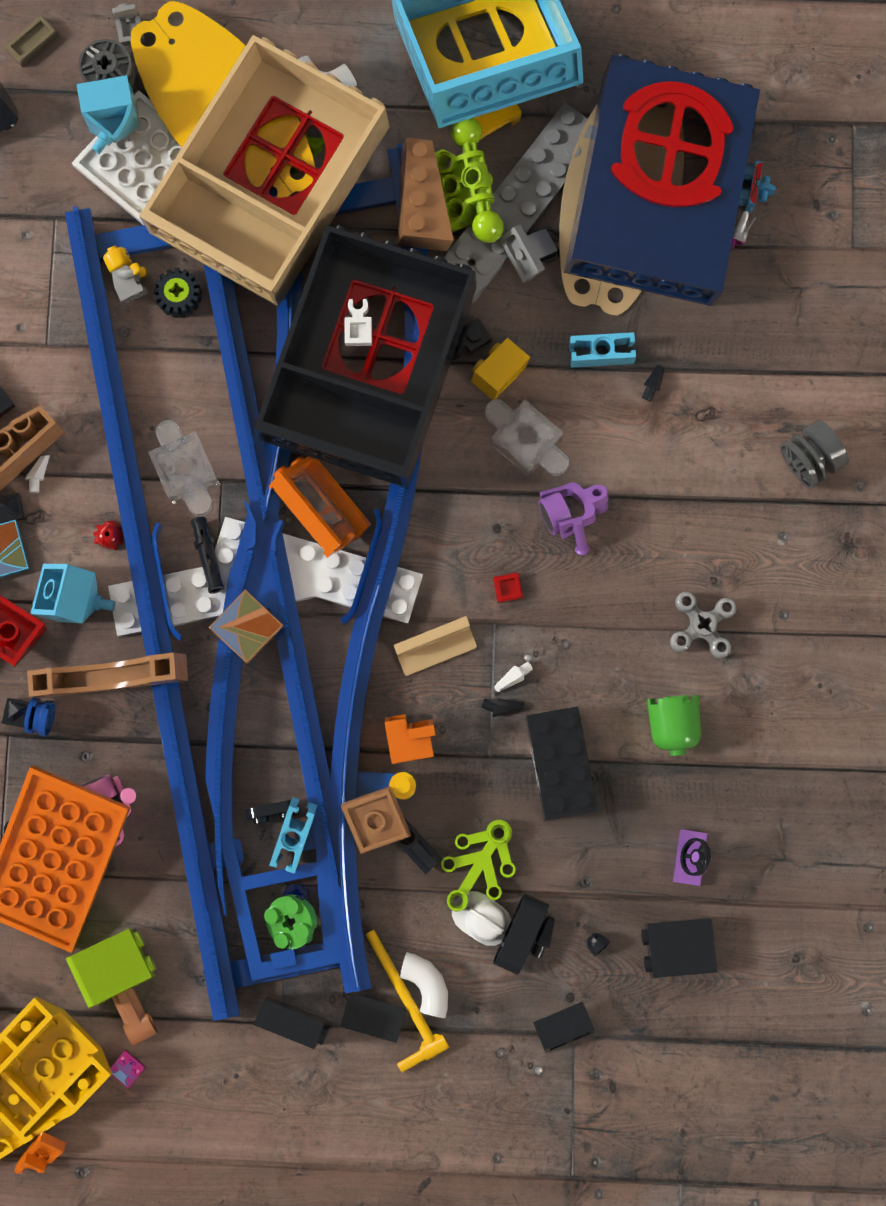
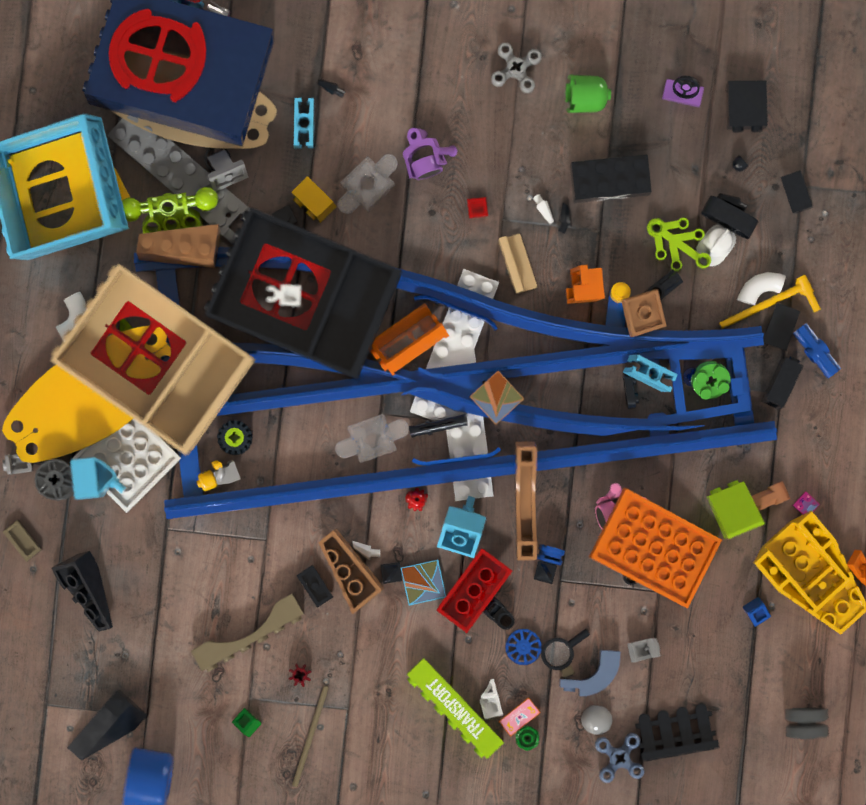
camera: 90 degrees left, 5 degrees up
(342, 1070) = (816, 350): none -> blue piece

